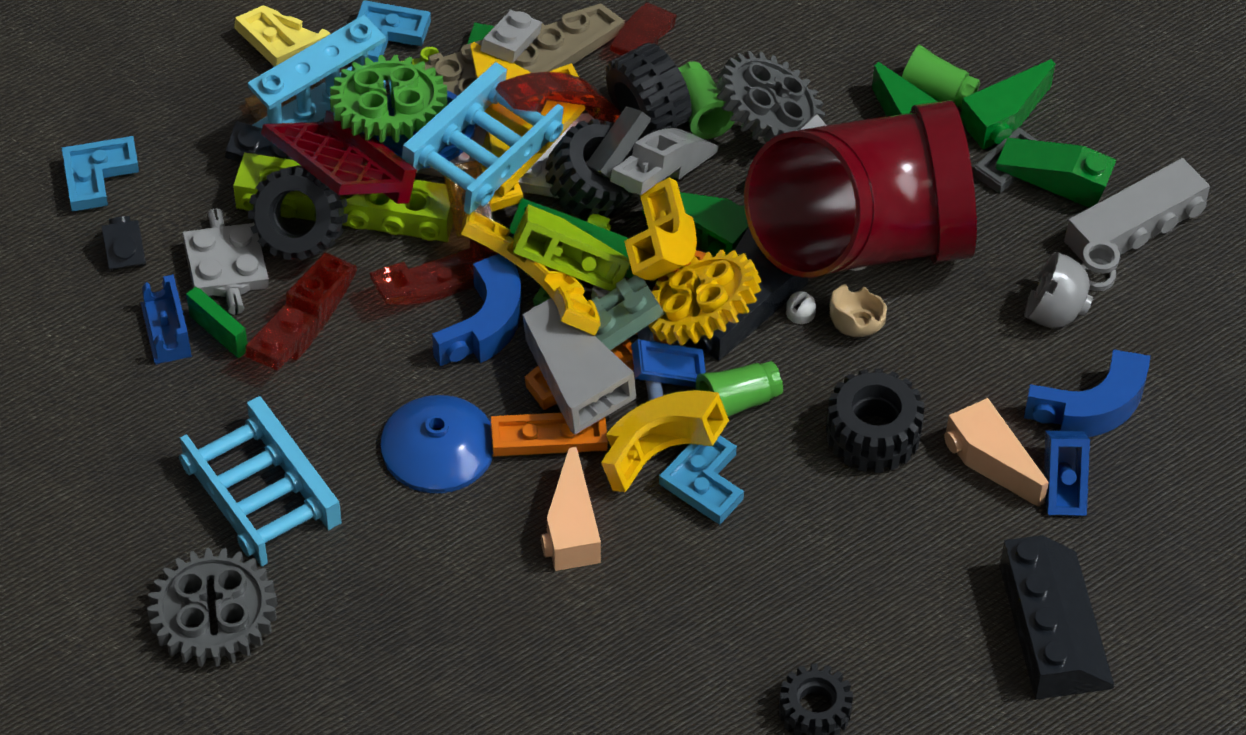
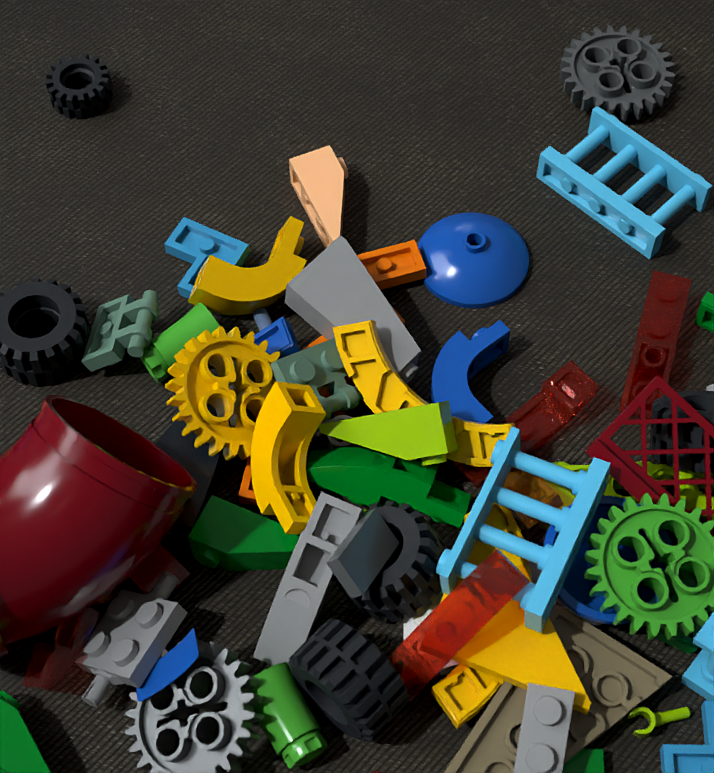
camera: 170 degrees right, 5 degrees up
(782, 117) = (169, 667): none -> blue sticker
(806, 410) = (115, 330): none -> sand green plate

